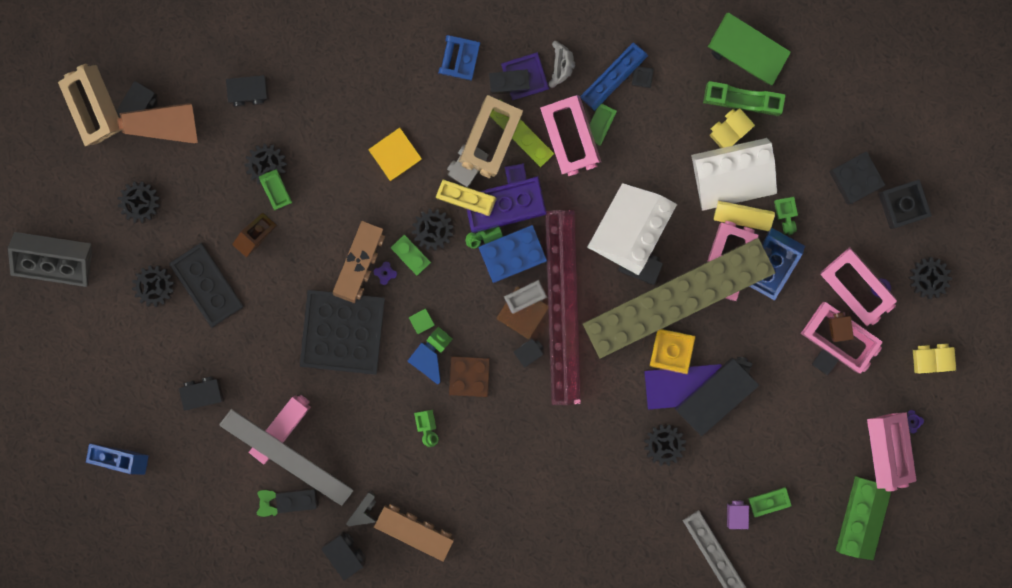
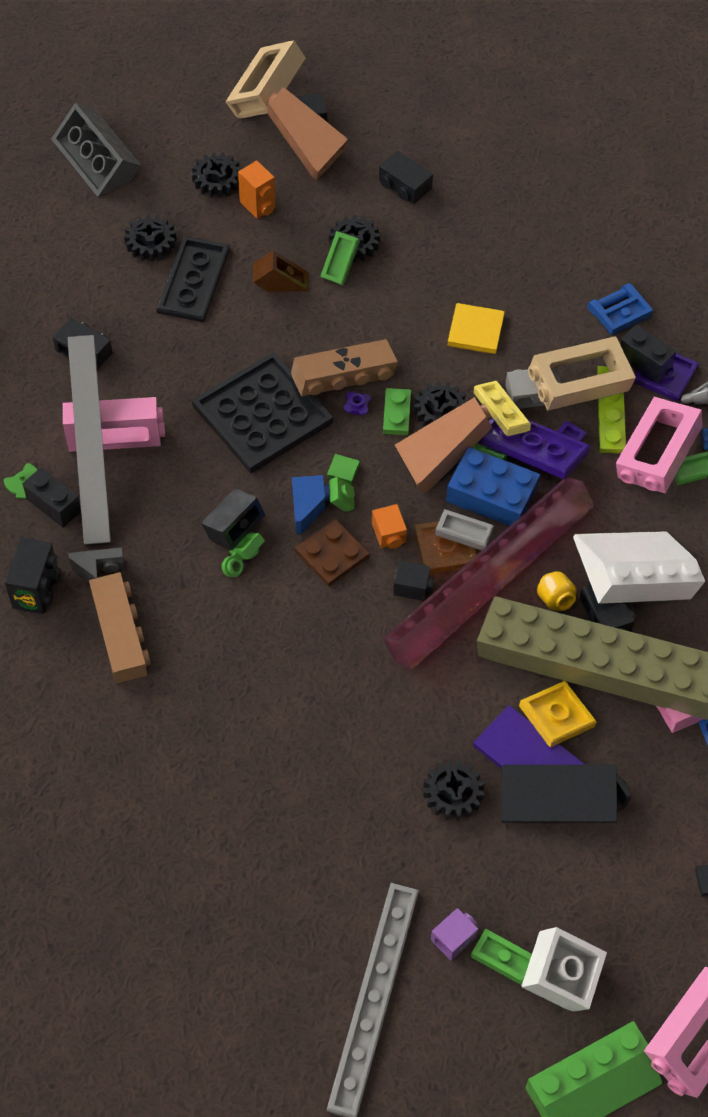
camera: 45 degrees right, 30 degrees down
(179, 194) = (257, 189): none -> orange brick
(402, 414) = (233, 519): none -> black brick
(461, 262) = (443, 443): none -> nougat slope
(484, 333) = (389, 526): none -> orange brick
(605, 282) = (557, 591): none -> yellow head
(805, 484) = (564, 969): none -> white brick

